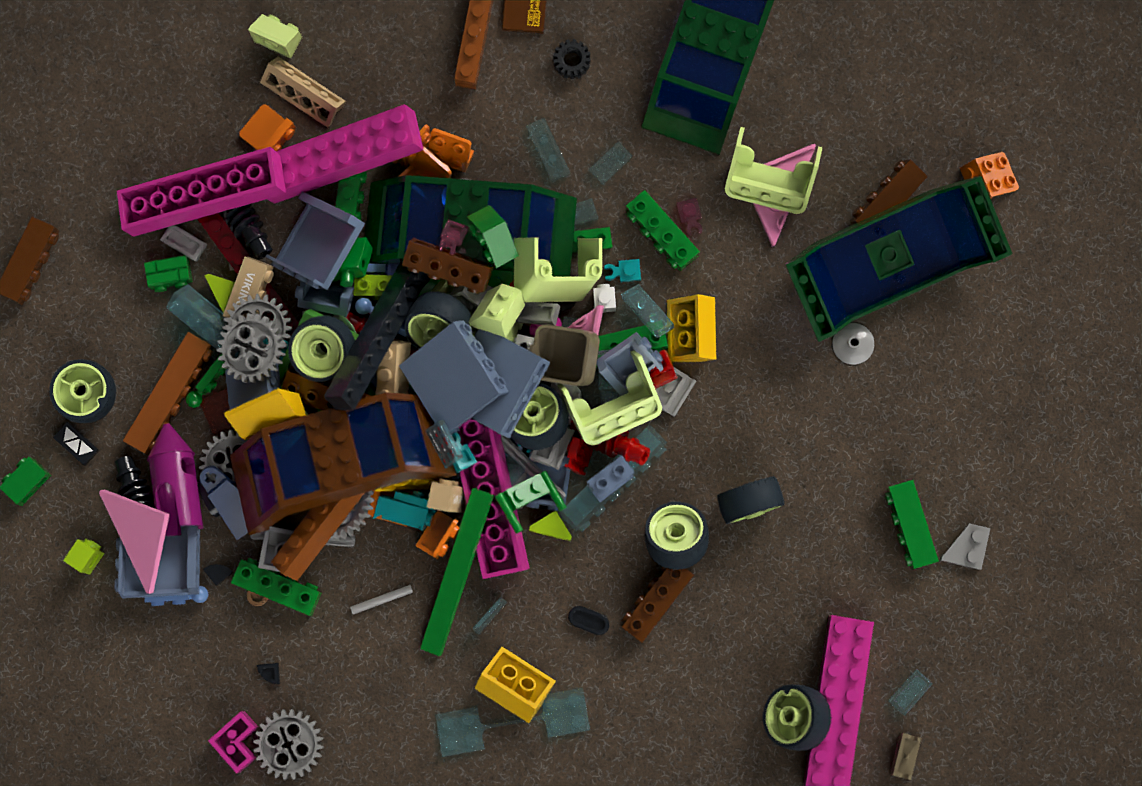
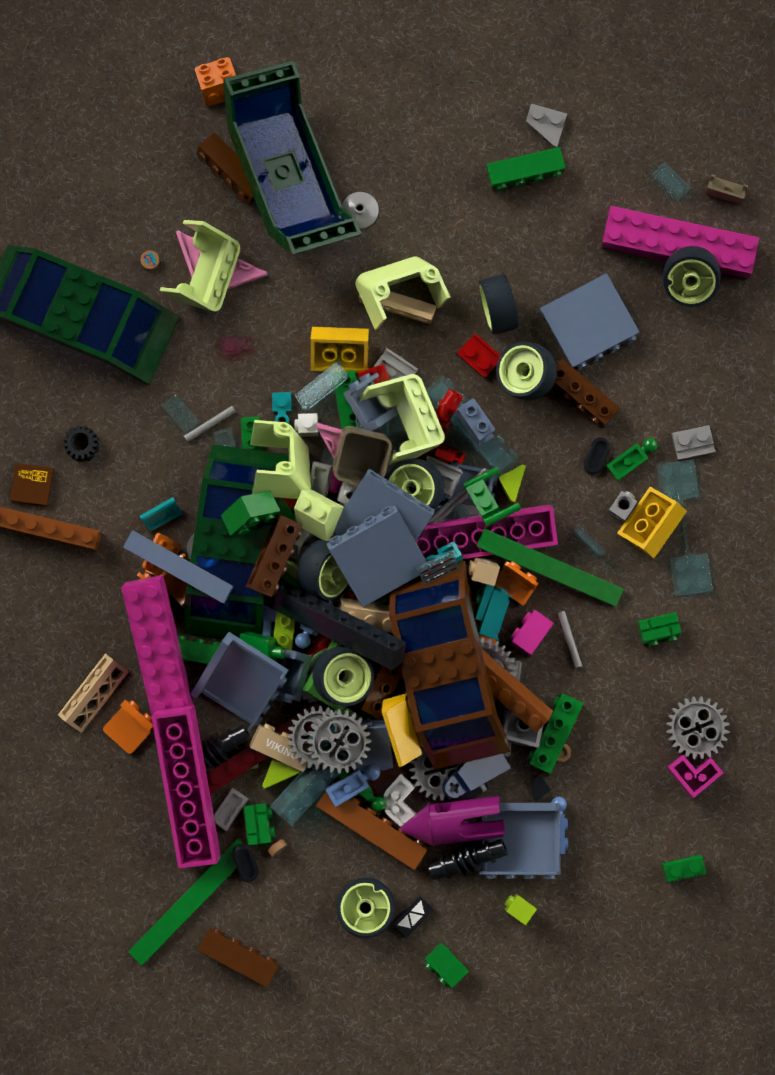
camera: 85 degrees left, 0 degrees up
(85, 207) = (184, 907): none -> green tile
(127, 262) = (245, 862): none -> black tile
(134, 734) = (683, 868): none -> green brick
(141, 532) = (502, 852): bright pink tile -> none
(144, 295) = (277, 848): none -> medium nougat tile
(202, 416) = (394, 798): none -> white plate
(209, 367) = (352, 784): none -> medium blue plate
(270, 672) = (631, 743): black tile -> none
(275, 35) = (38, 714): yellowish green slope -> none
(383, 555) = (531, 633): none -> dark pink brick
(396, 697) = (659, 628): none -> green brick
(433, 165) = (178, 566): none -> sand blue tile
(452, 235) = (247, 549): clear pink plate -> none
(497, 149) = (161, 514): none -> teal plate
(523, 647) = (621, 514): none -> light grey brick
(548, 150) = (164, 470): clear light blue tile -> none
(586, 659) = (631, 458): none -> green plate
(601, 194) = (210, 423): none -> light grey bar
(609, 729) = (693, 442): none -> light grey plate
(662, 231) = (247, 370): green brick -> none
(694, 484) = (479, 355): none -> red plate
(738, 605) = (590, 322): none -> sand blue panel
(748, 390) = (408, 307): none -> tan fence
(766, 359) = (375, 284): none -> yellowish green windscreen
(780, 118) = (150, 260): none -> medium nougat tile

